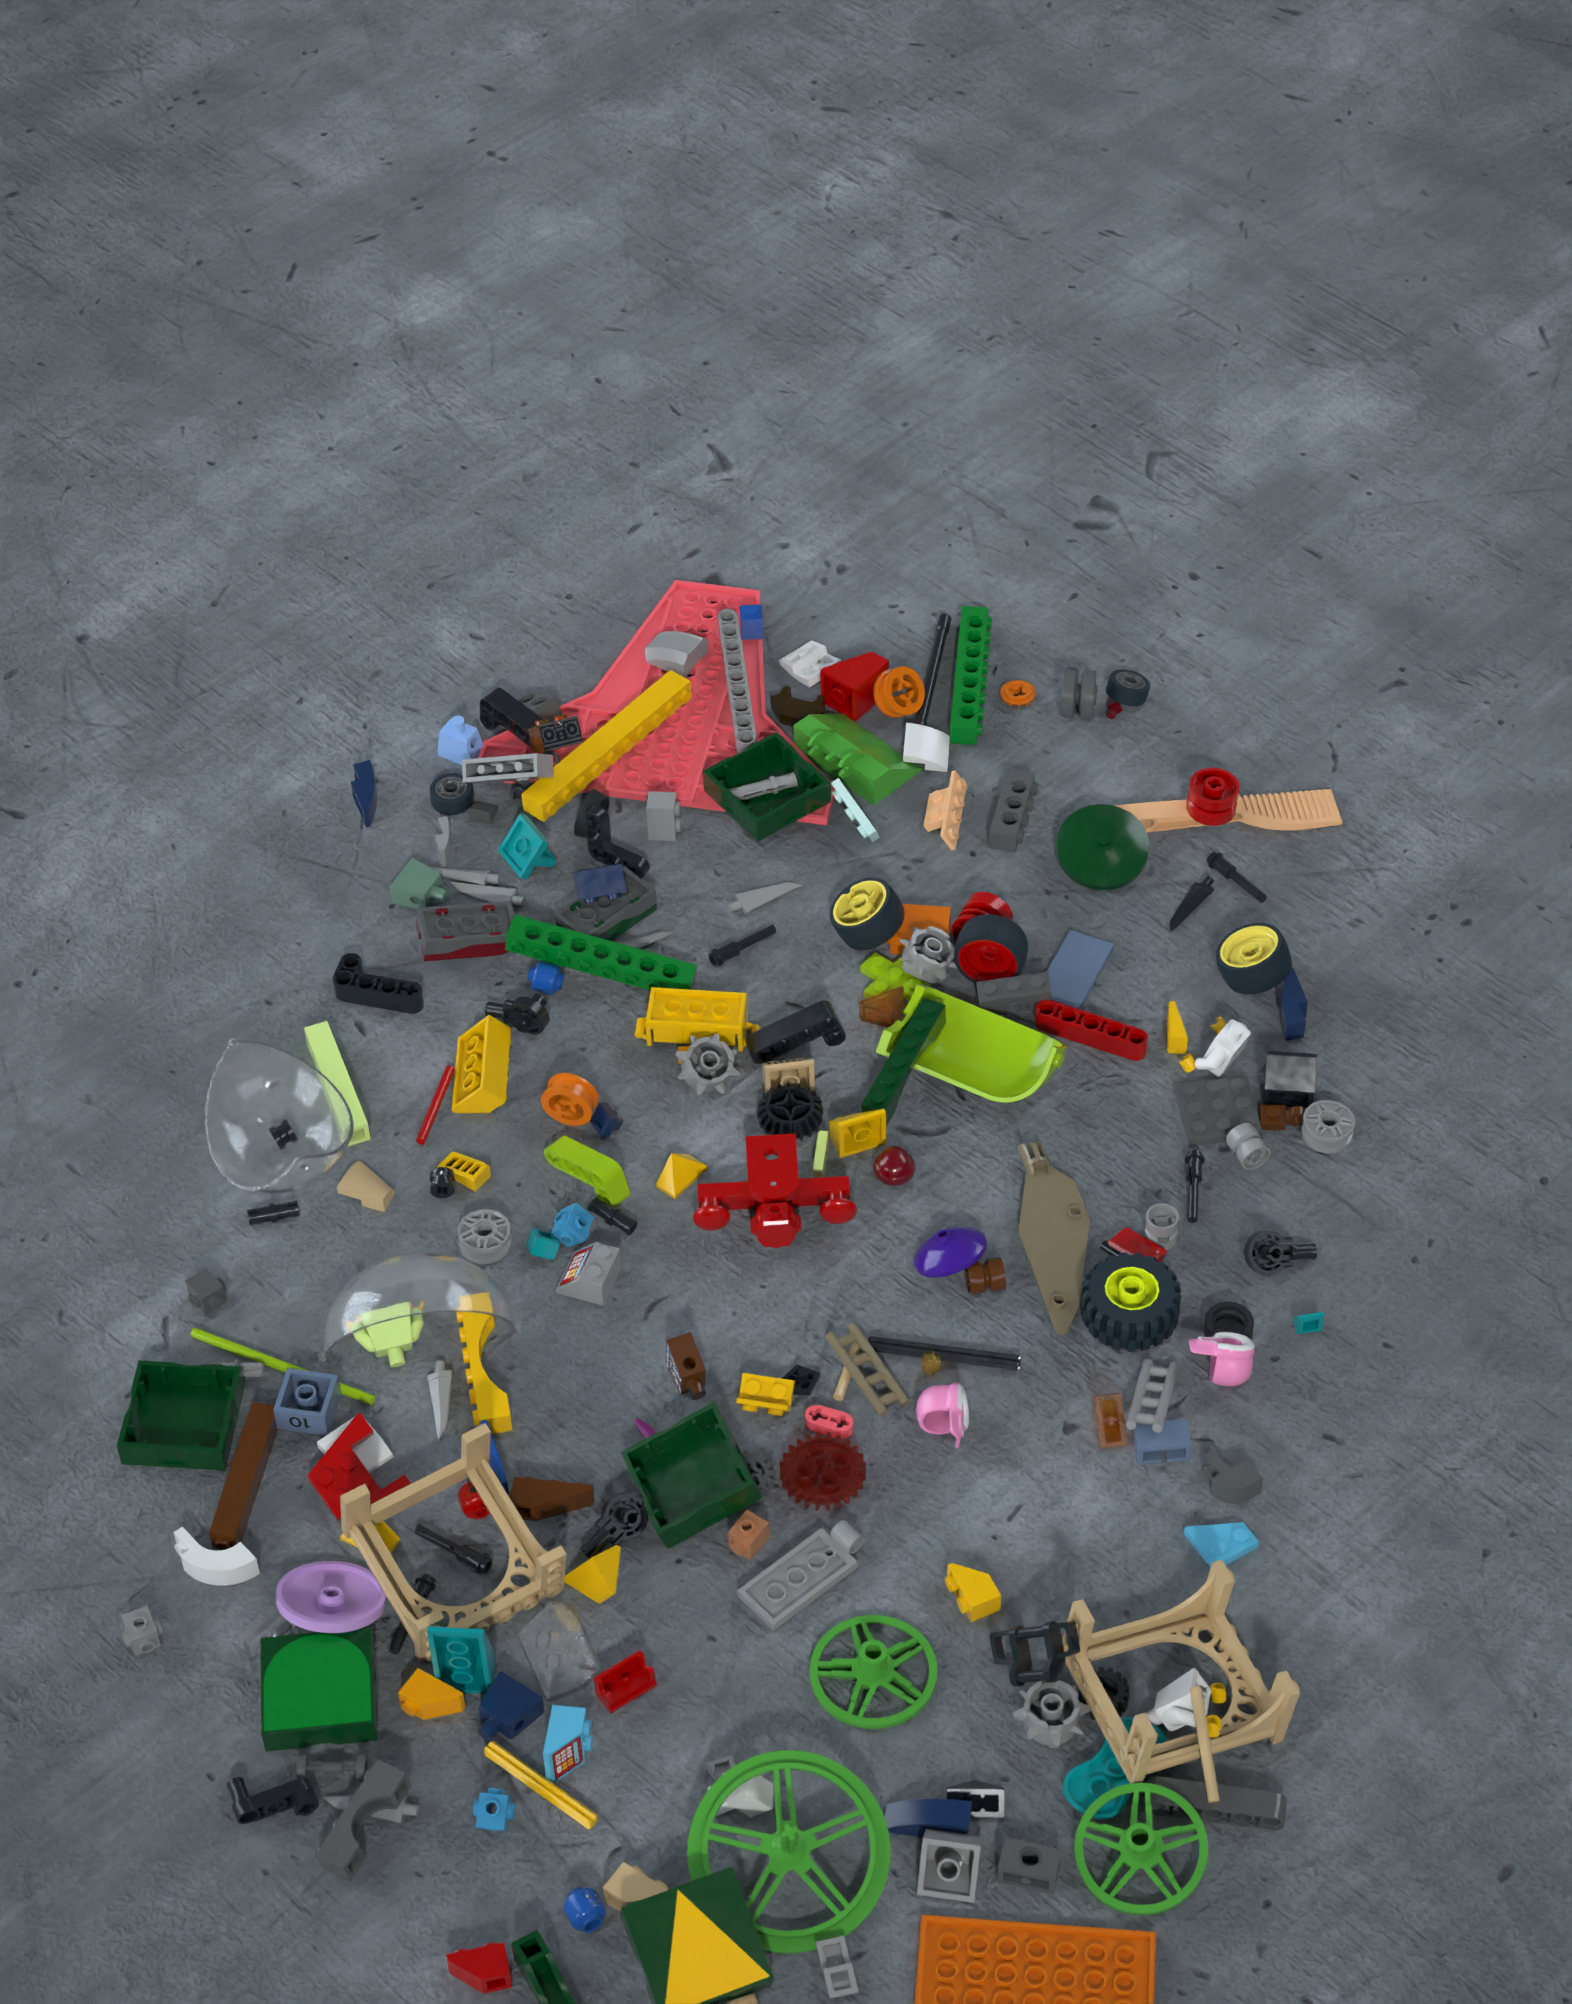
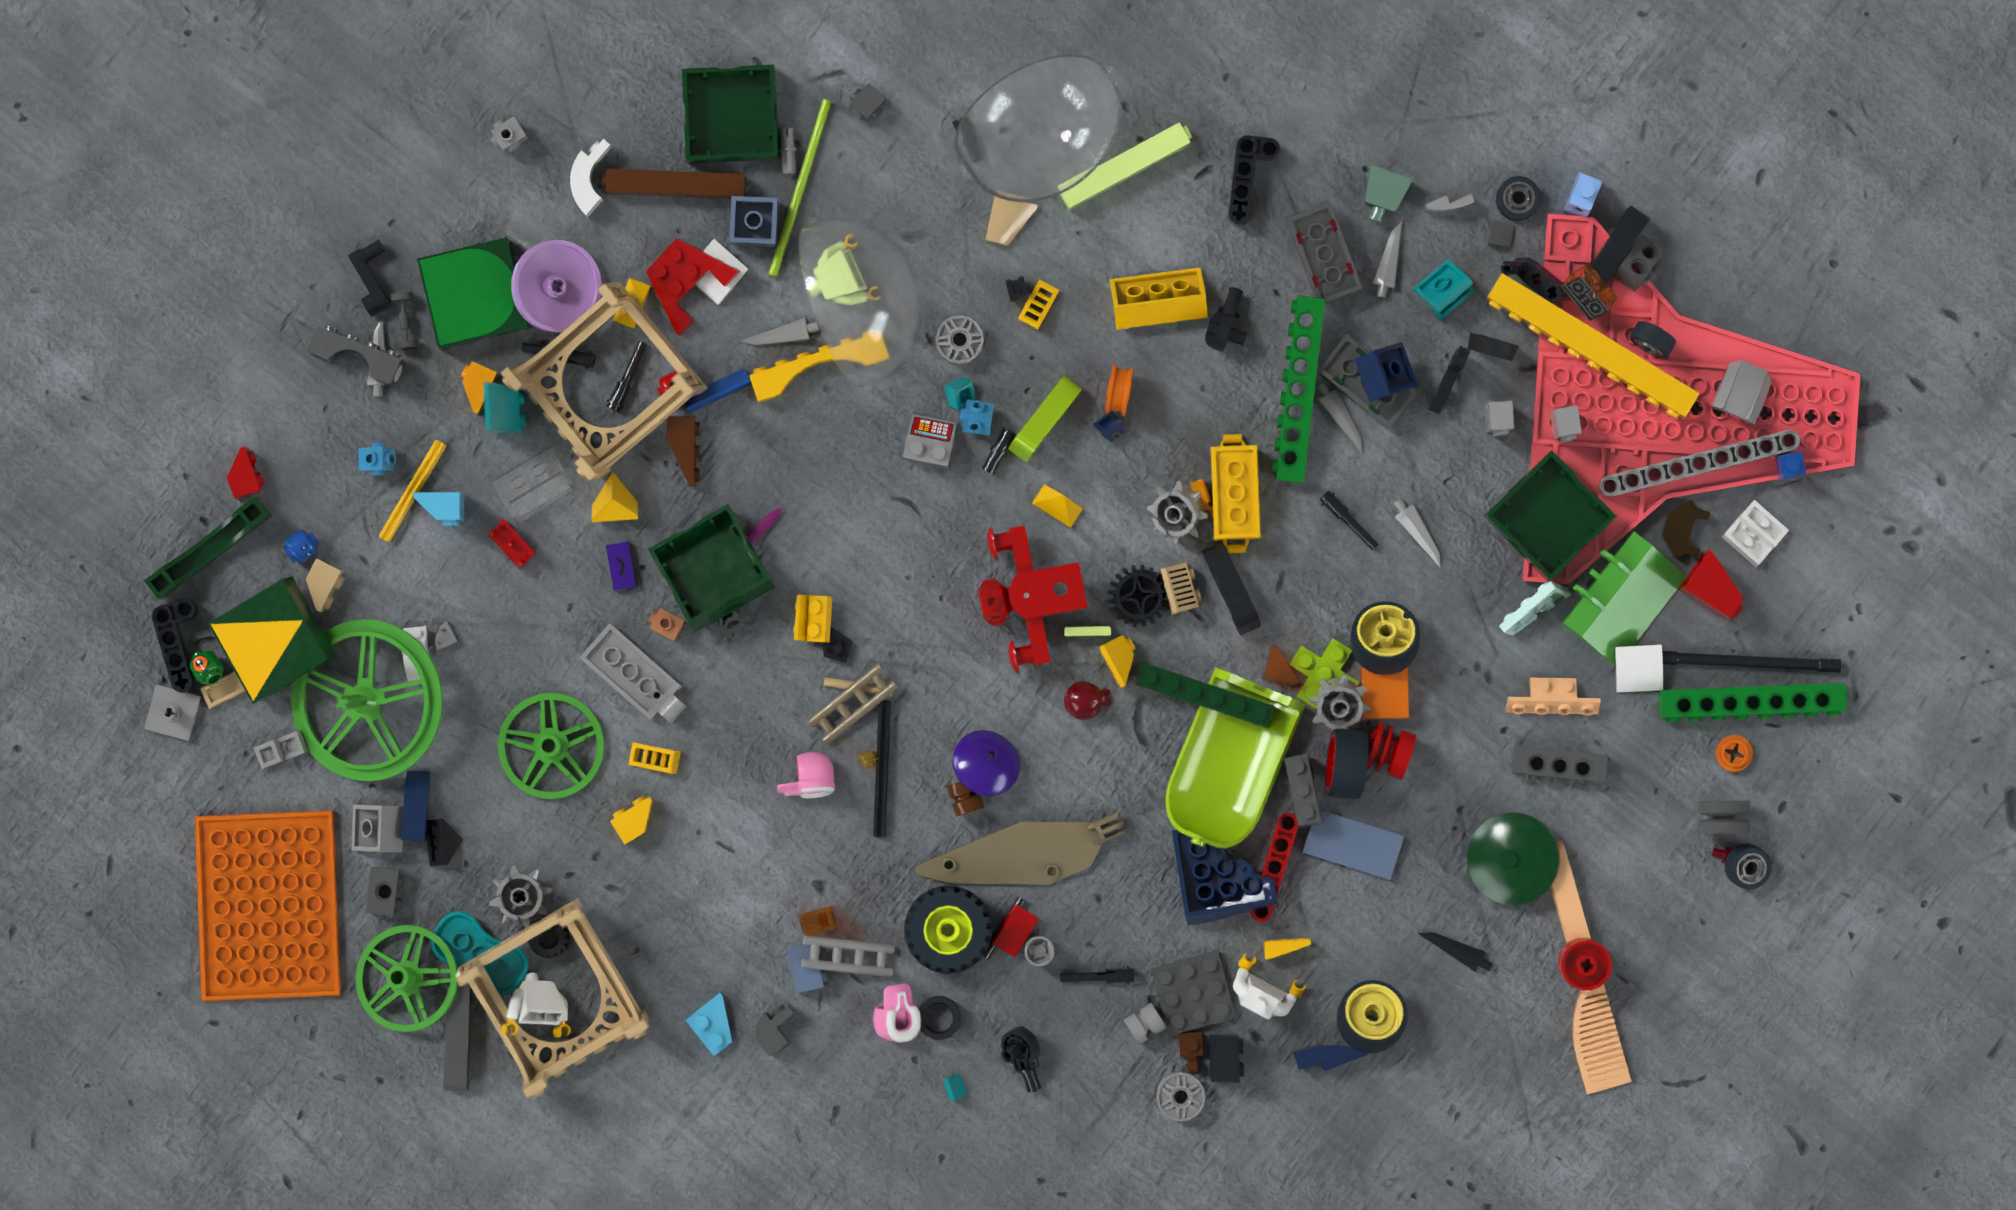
camera: 80 degrees right, 40 degrees up
(283, 1134) = (1050, 131): black wheel -> none
(364, 791) = (1508, 111): dark blue slope -> none
(435, 1105) = (1115, 263): red bar -> none
(479, 877) = (1412, 233): light grey bar -> none
(507, 768) = (1531, 253): light grey brick -> none
(508, 1708) = (475, 451): dark blue torso -> none
(546, 978) = (1276, 338): blue head -> none
(611, 697) = (1652, 339): none -> black wheel
(614, 1523) = (662, 511): black pin -> none
(672, 1578) = (621, 566): none -> dark purple tile
(678, 761) = (1565, 424): none -> light grey piece
(686, 1365) = (837, 542): reddish brown torso -> none
(767, 786) = (1547, 511): light grey pin -> none
(802, 1463) = (734, 699): clear red gear -> none
(829, 1421) = (802, 678): coral beam -> none
(902, 703) = (1708, 624): orange wheel -> none
(908, 1547) = (673, 760): none -> yellow slope
(1021, 1660) = (572, 865): black bar -> none
(1102, 1077) = (1217, 883): none -> dark blue slope
(1204, 1744) = (489, 1023): tan bar -> none
(1216, 861) = (1504, 984): black pin -> none

